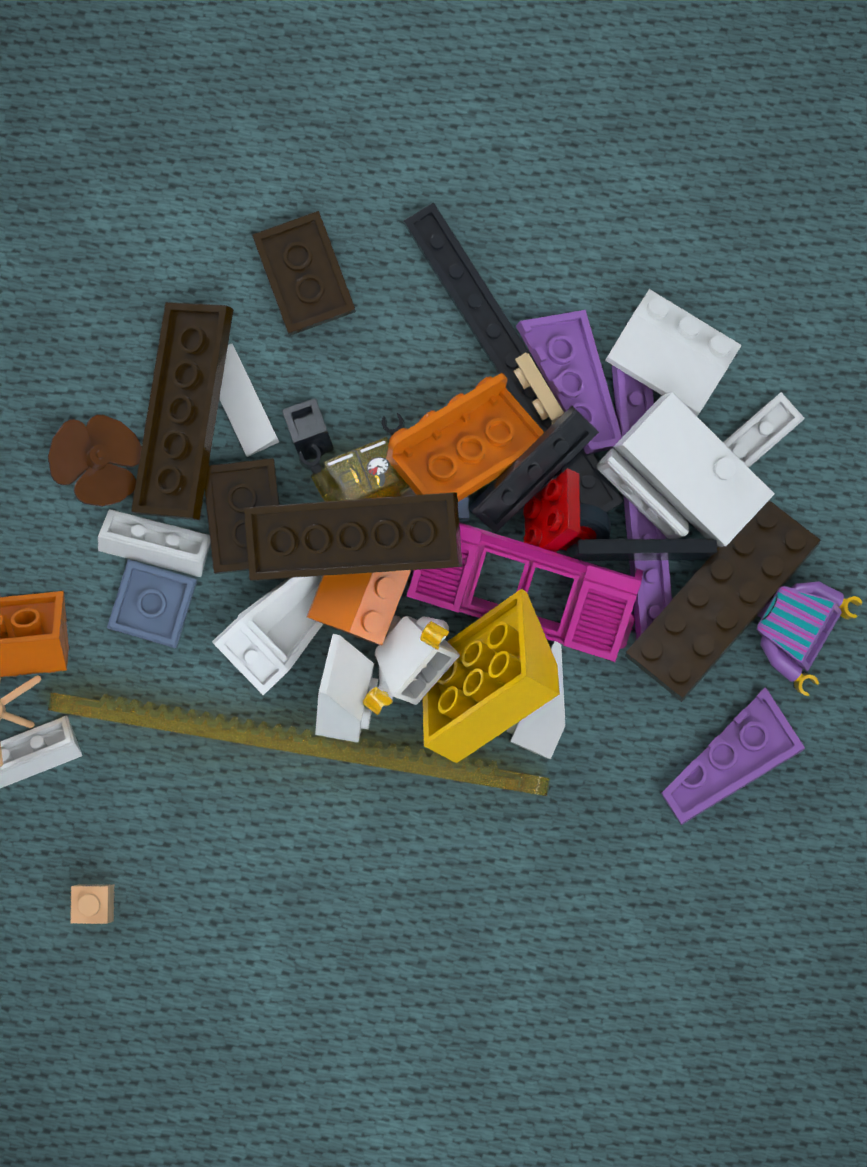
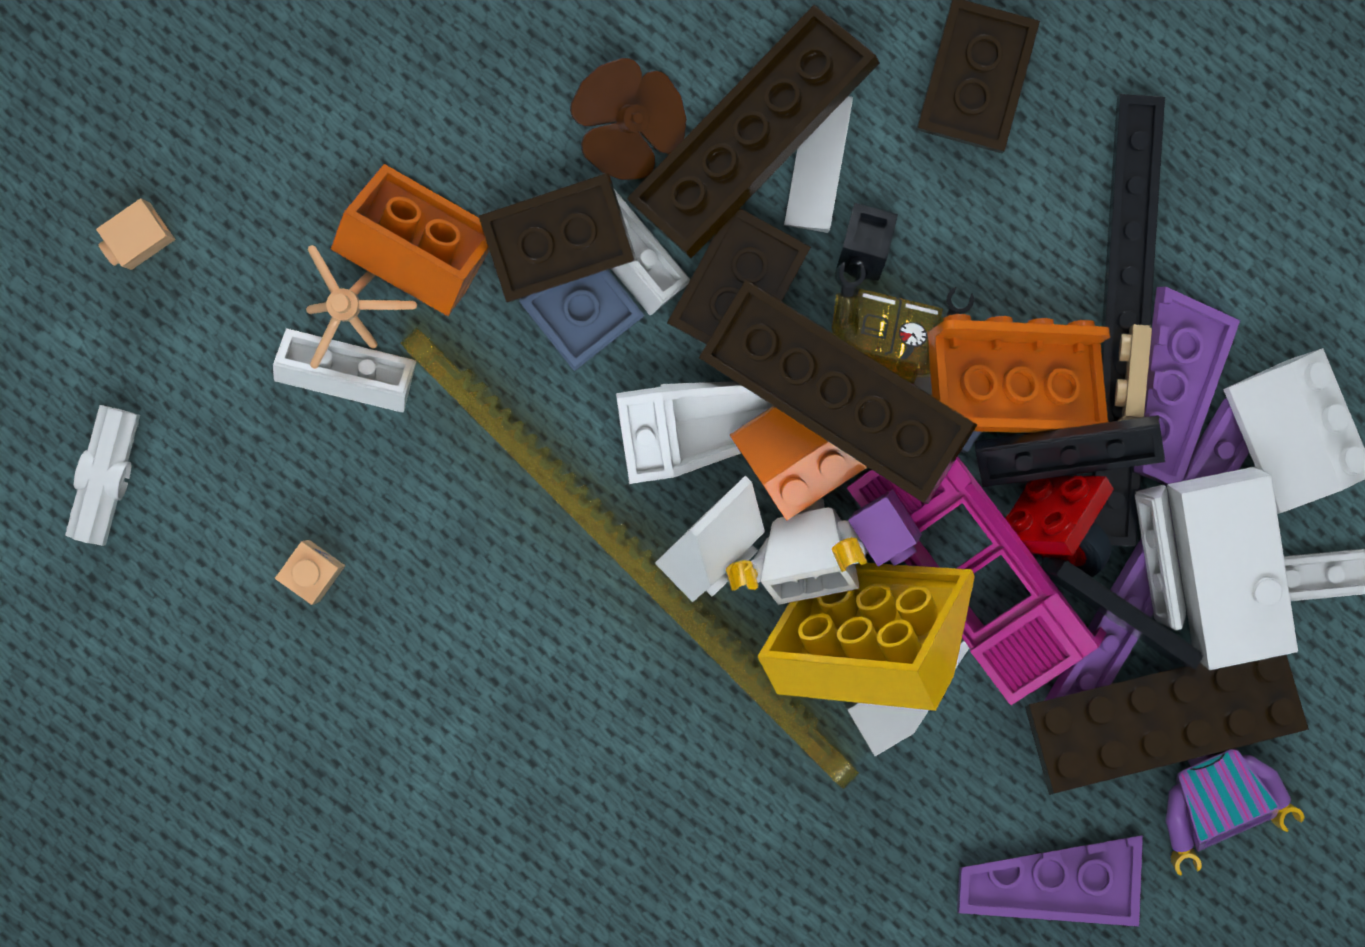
camera: 40 degrees right, 5 degrees up
(102, 568) = (557, 237): none -> dark brown plate
(449, 603) = (886, 529): none -> medium lavender brick

